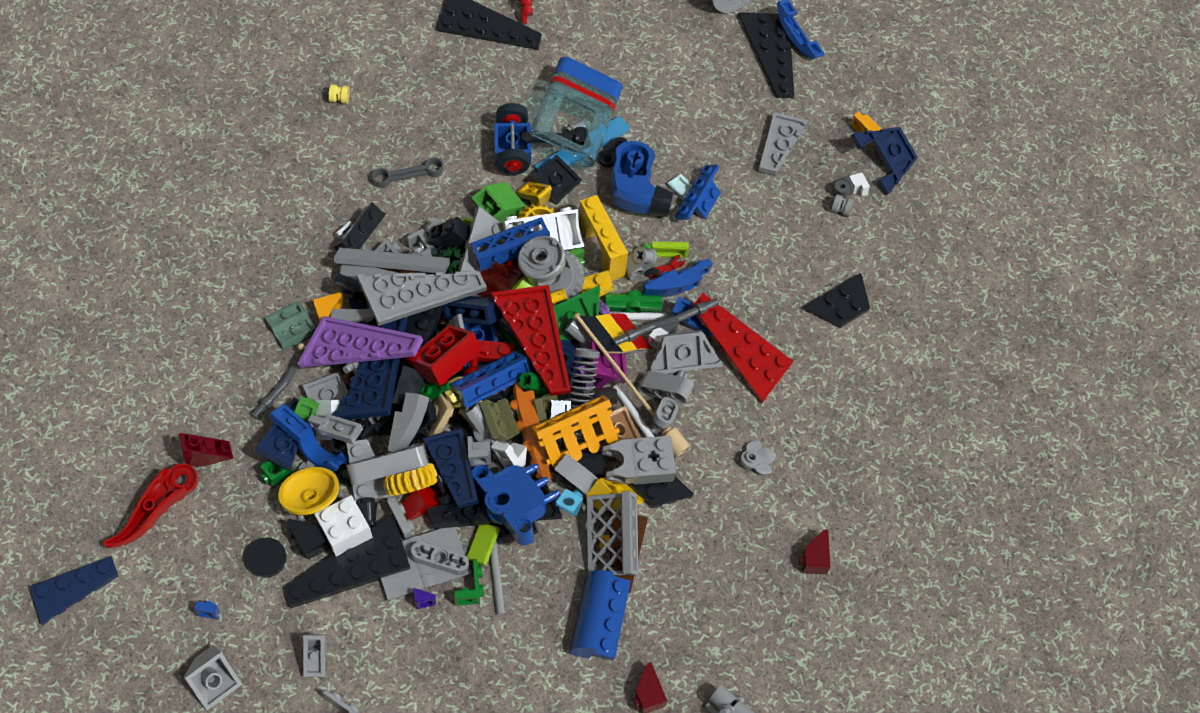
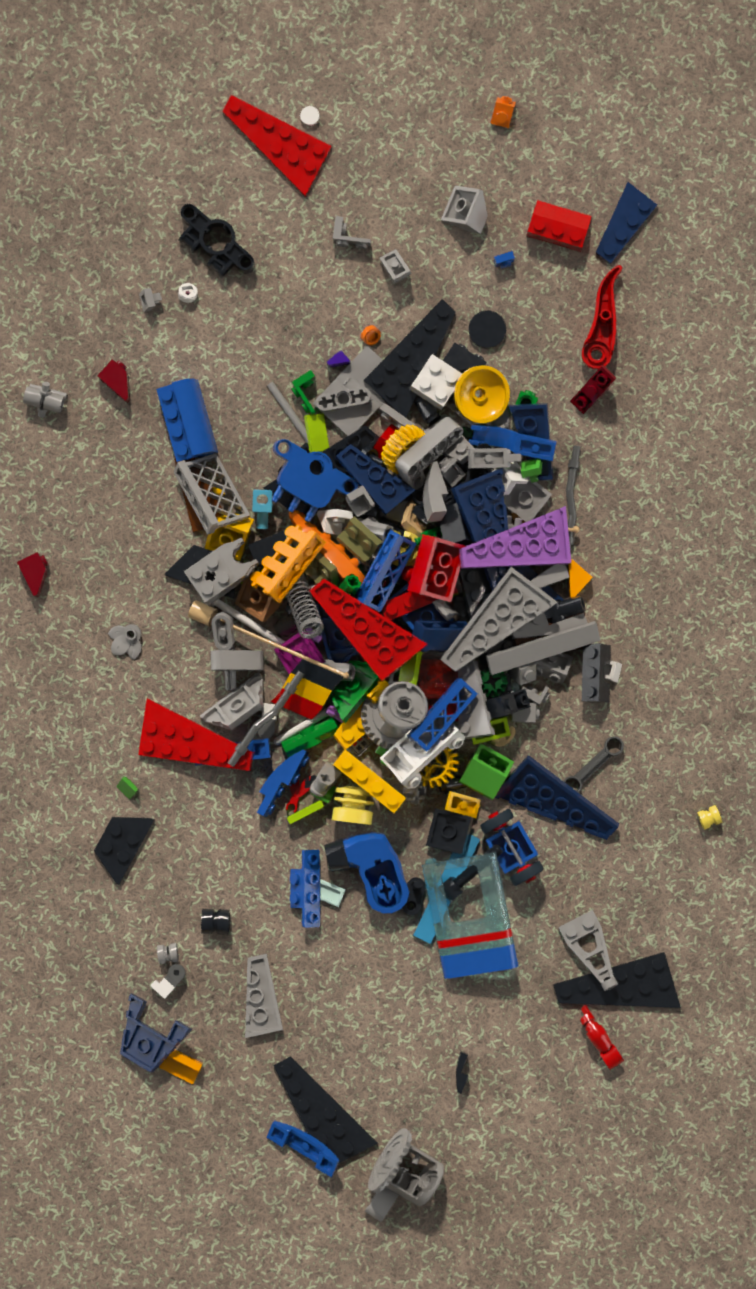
camera: 165 degrees right, 25 degrees up
(133, 615) = (558, 226): none -> red slope
(290, 325) = (600, 550): sand green slope -> none
(378, 606) = (371, 335): none -> orange tile
(379, 441) = (451, 471): none -> light grey bracket
(457, 165) = (549, 796): none -> dark blue wing
(493, 72) = (580, 928): none -> light grey plate
(558, 407) = (312, 573): tile -> none
(576, 473) = (269, 529): light grey slope -> none
(583, 123) = (463, 905): light grey pin -> none
(631, 226) = (353, 806): none -> light yellow wheel
(647, 24) = (461, 1077): none -> black slope
(789, 206) = (215, 921): none -> black wheel
(814, 341) = (127, 787): none -> bright green slope

